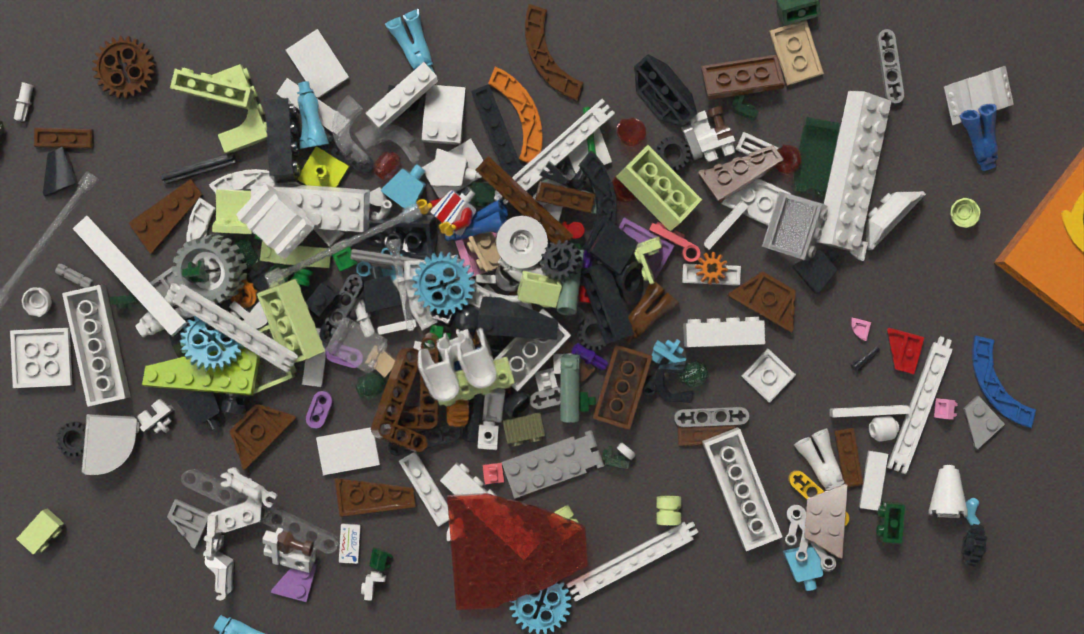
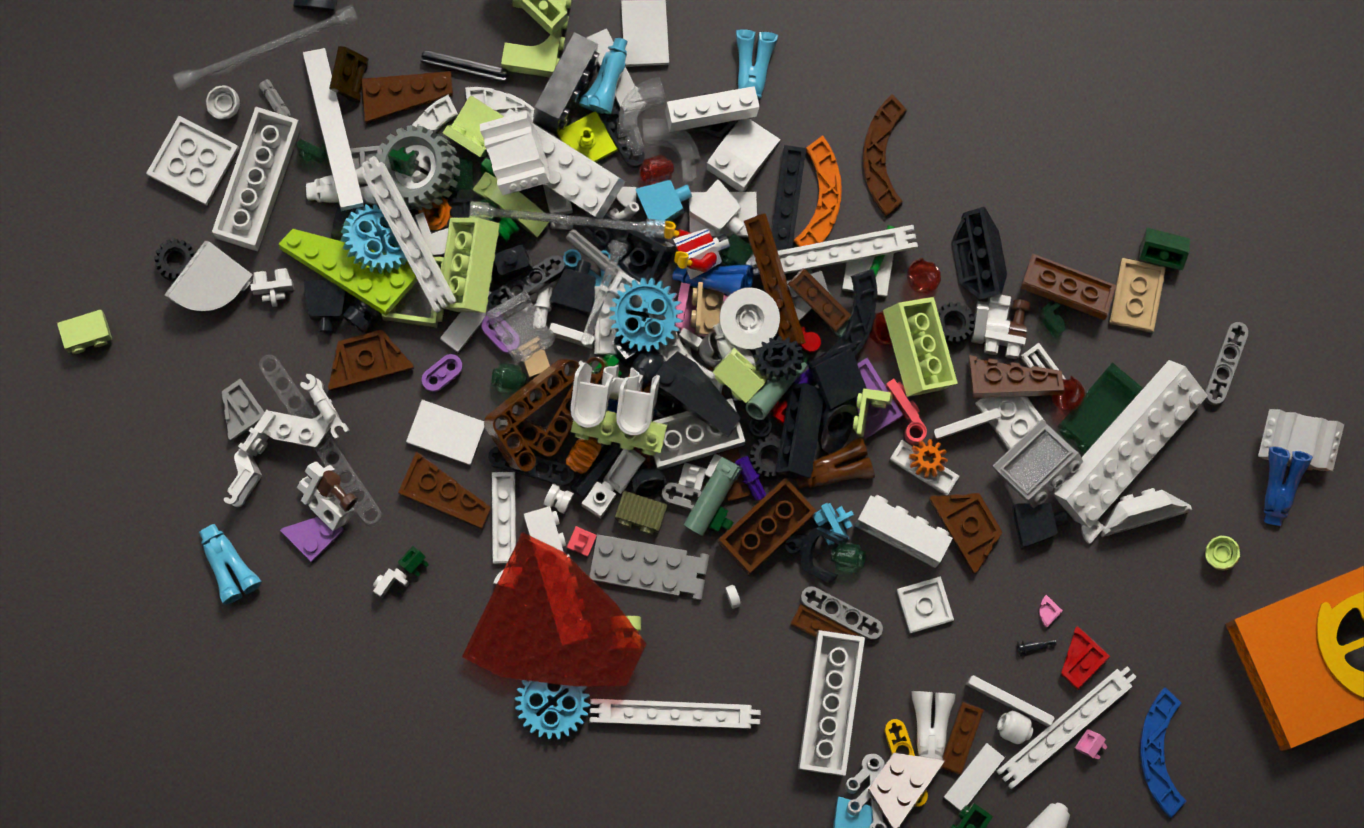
camera: 20 degrees right, 10 degrees down
(115, 226) = (348, 73): none -> dark brown plate
(343, 259) = (557, 236): green tile -> none
(349, 543) = (391, 528): white tile -> none
(458, 453) = (558, 498): none -> white wheel
(569, 177) = (832, 278): black piece -> none
(617, 461) = (719, 601): clear green bracket -> none
(668, 510) = (742, 682): yellowish green wheel -> none
(981, 421) = (1122, 780): light grey wing -> none

